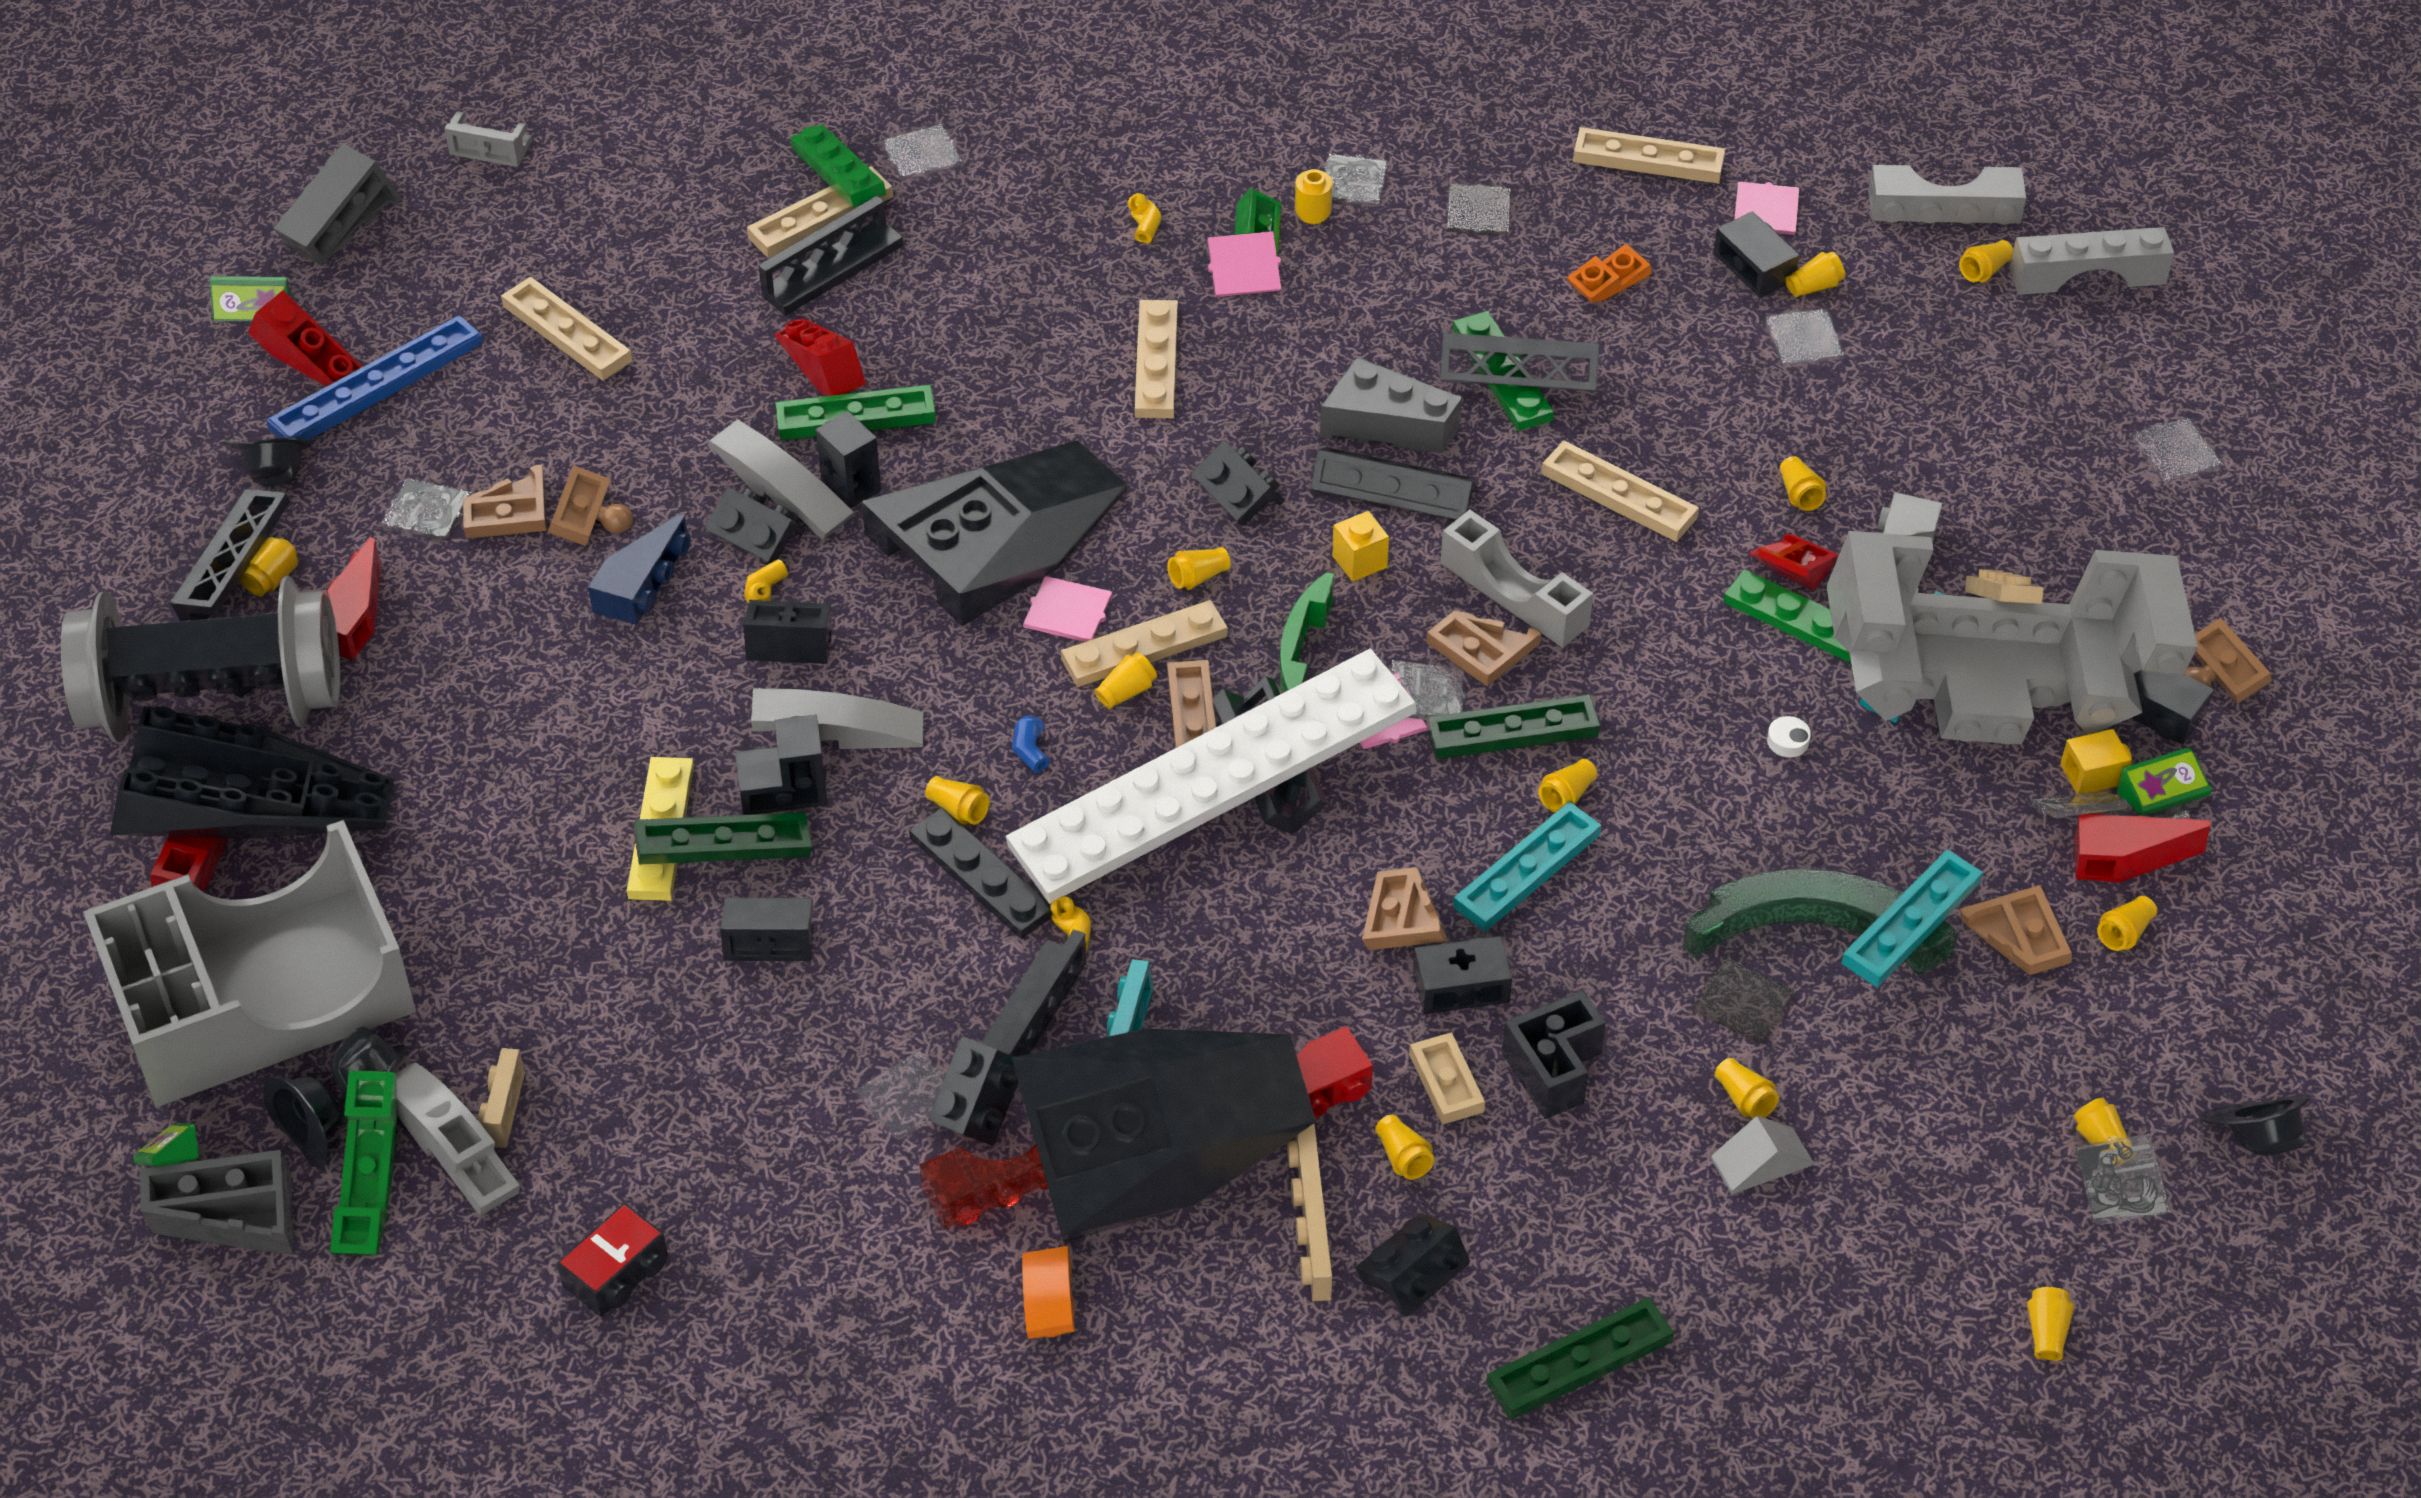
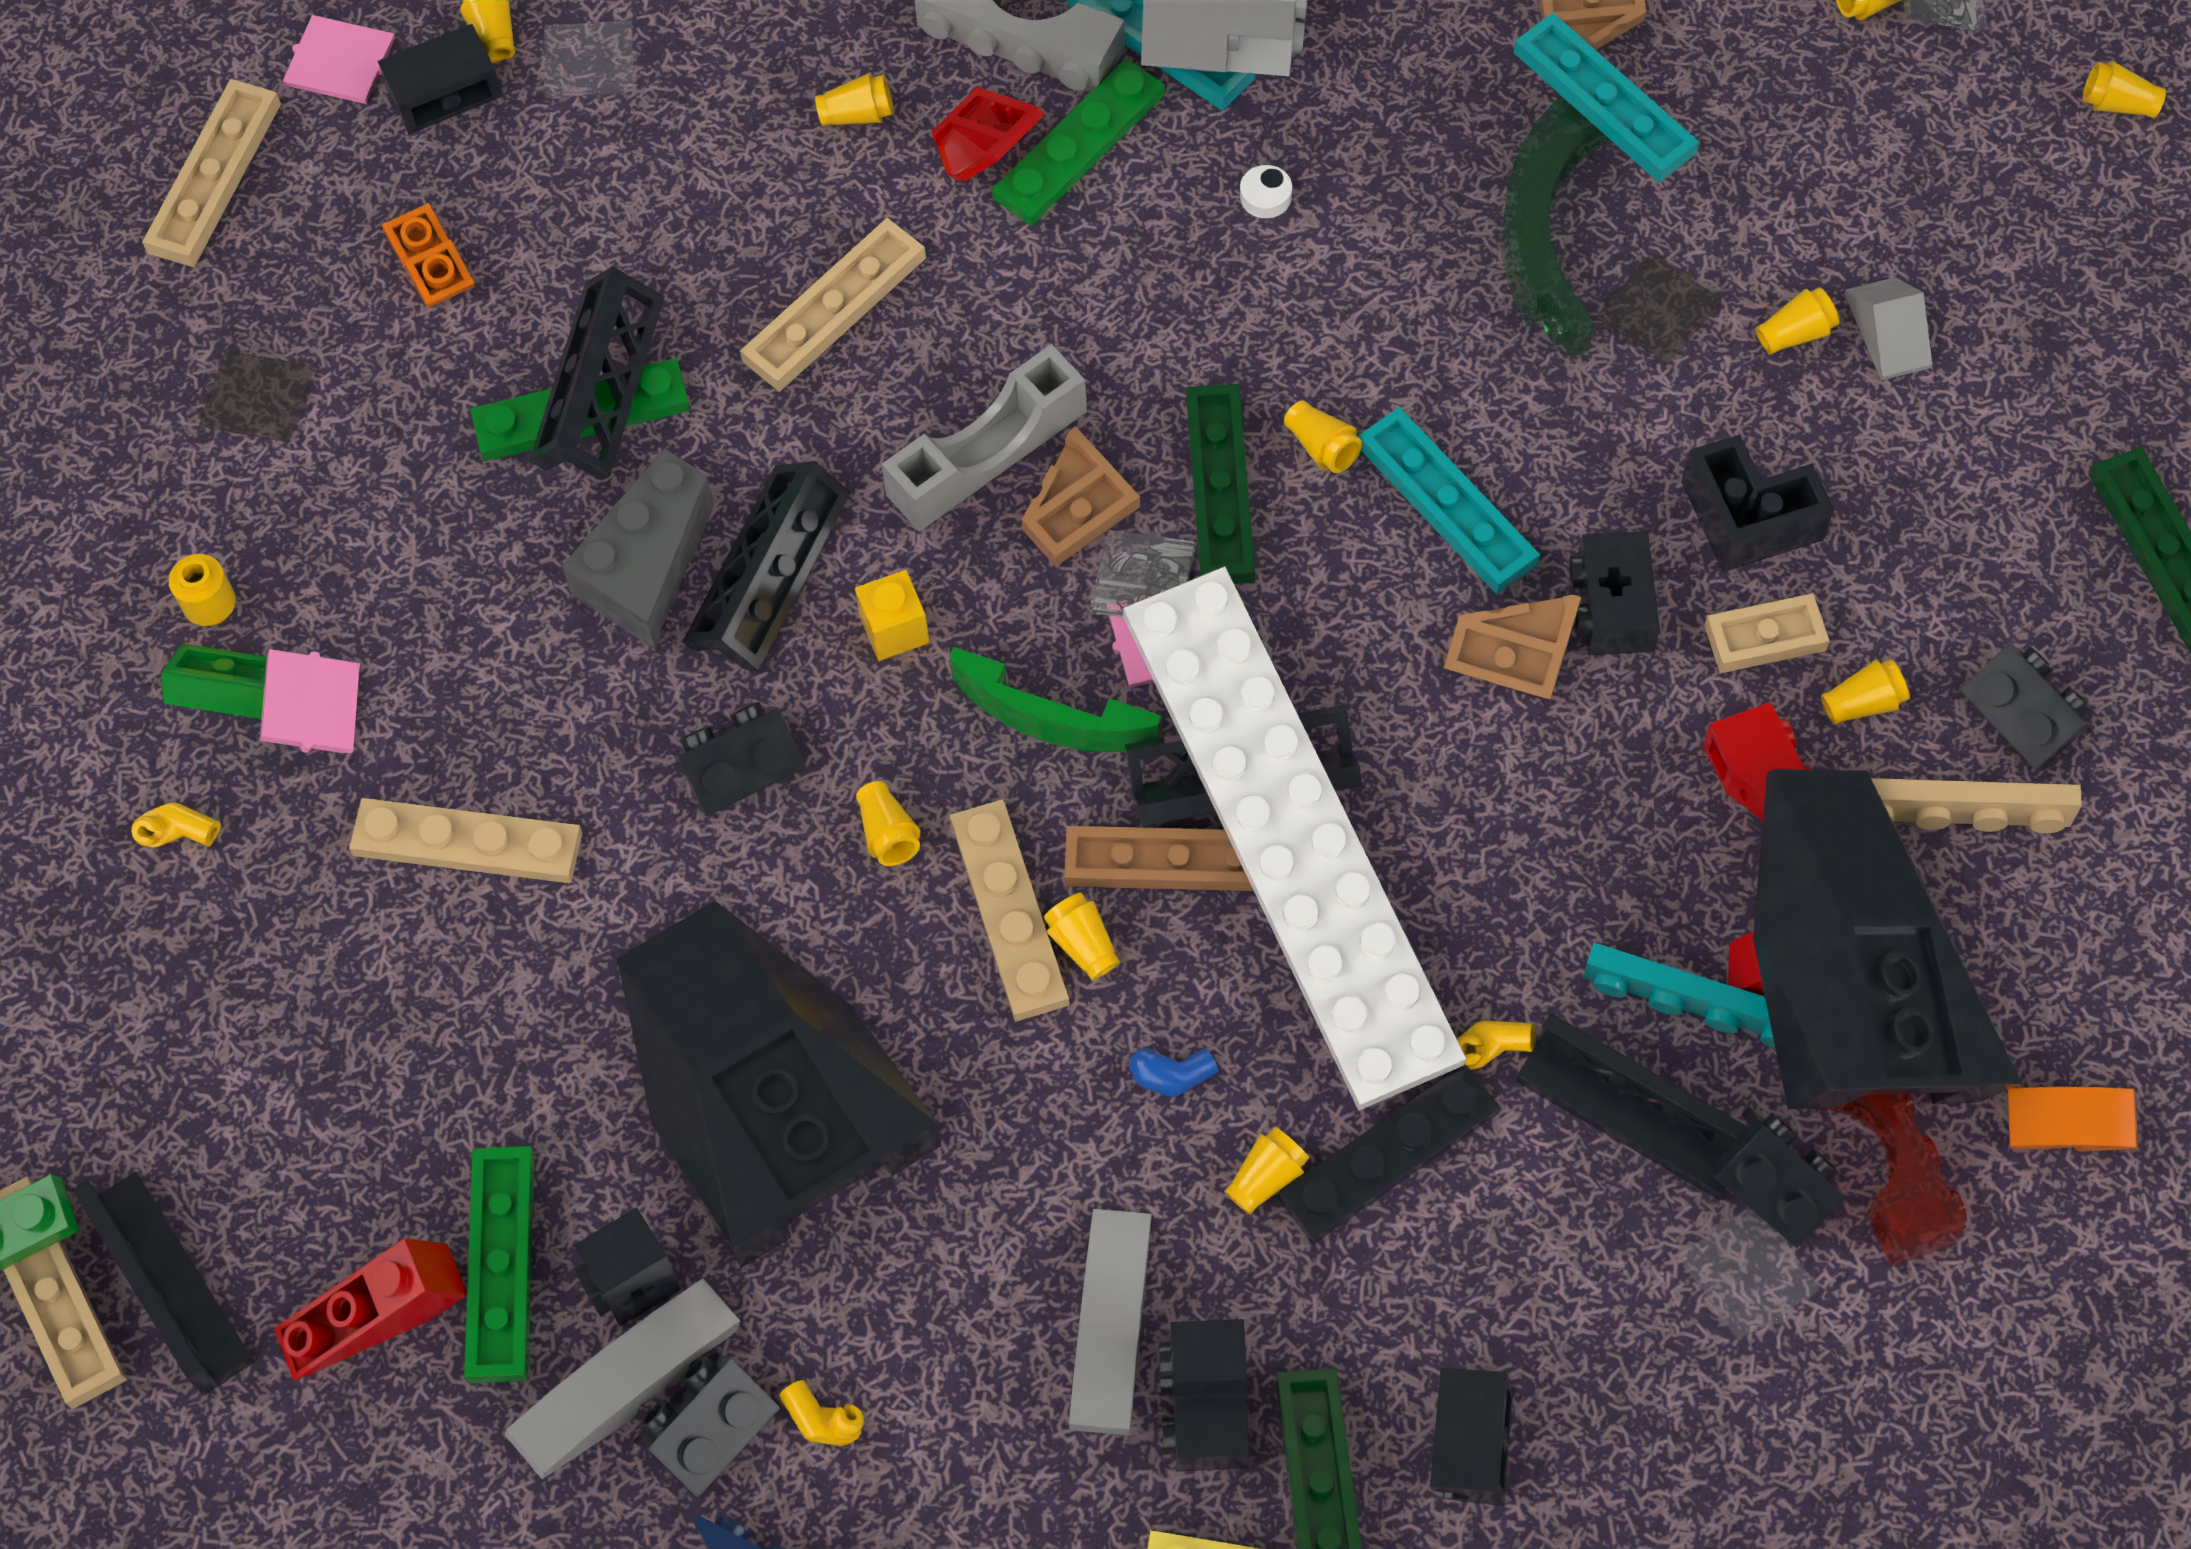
camera: 80 degrees left, 15 degrees up
(787, 631) = (931, 1380): black hinge -> none
(1067, 609) = (927, 1004): bright pink piece -> none
(1356, 179) = (152, 540): piece -> none

